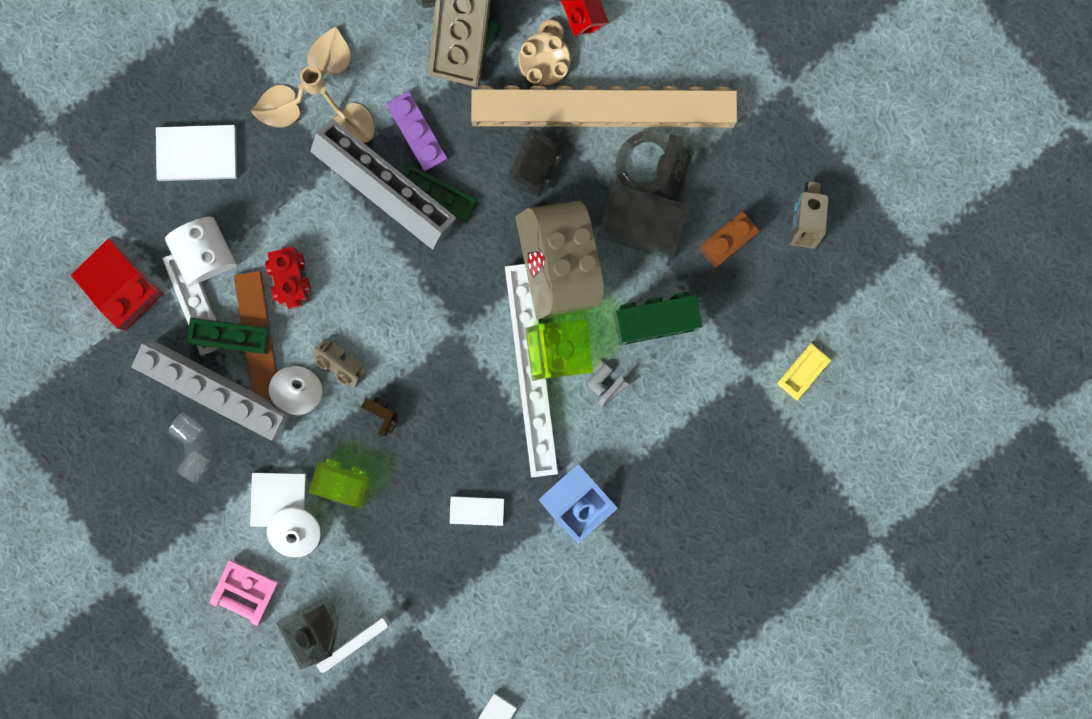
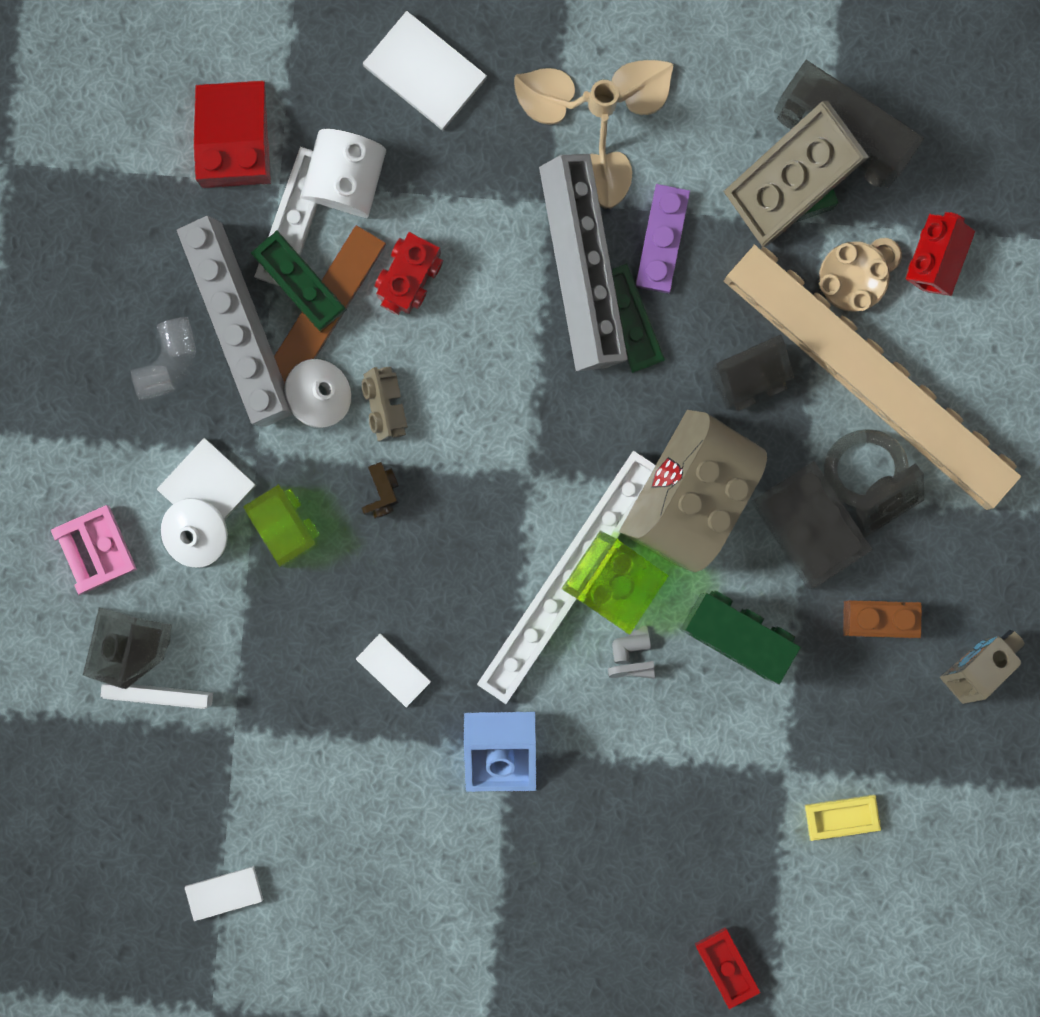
camera: 40 degrees right, 0 degrees up
(813, 513) = (727, 968): none -> red plate

